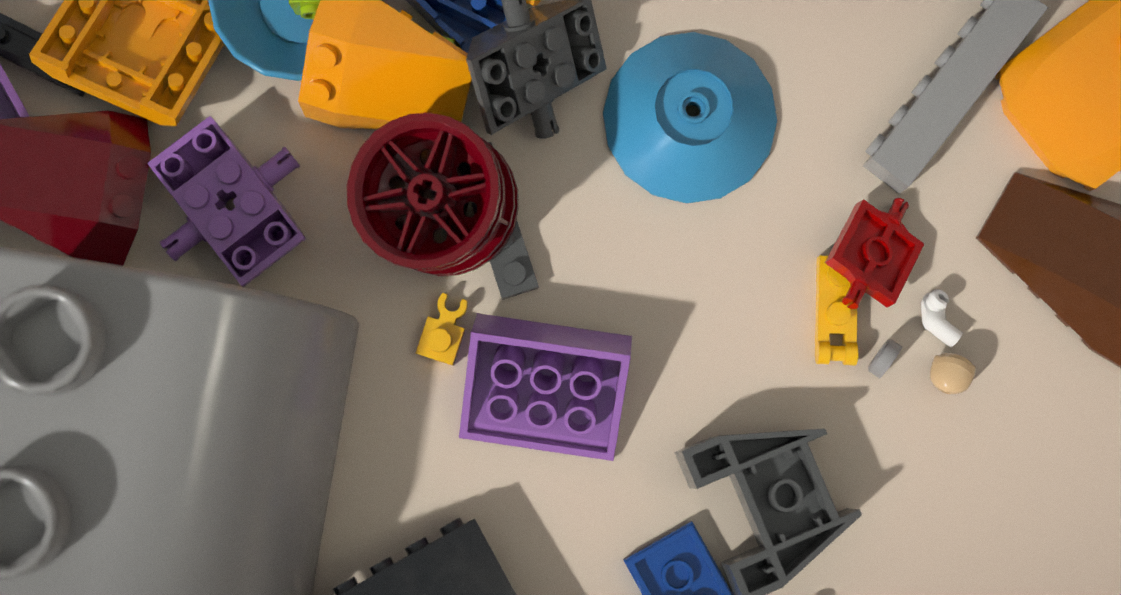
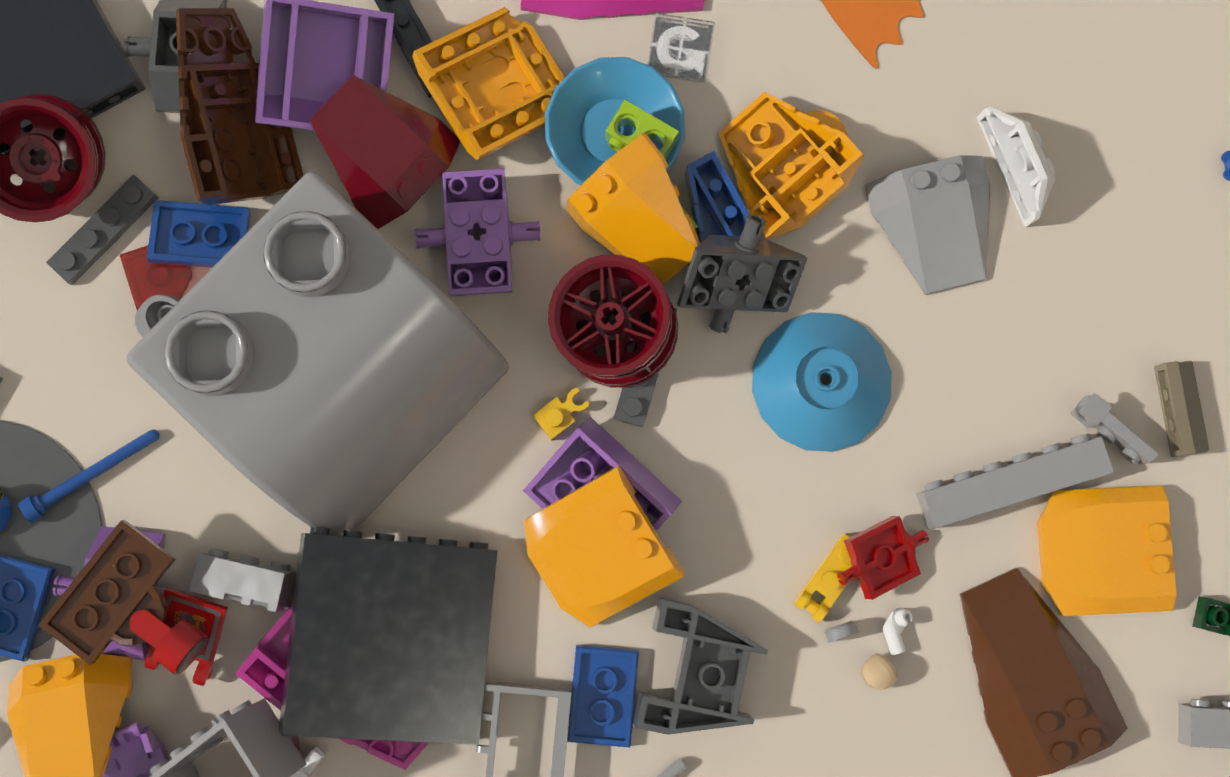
camera: 30 degrees right, 0 degrees up
(580, 444) = (599, 549): none -> light orange wedge

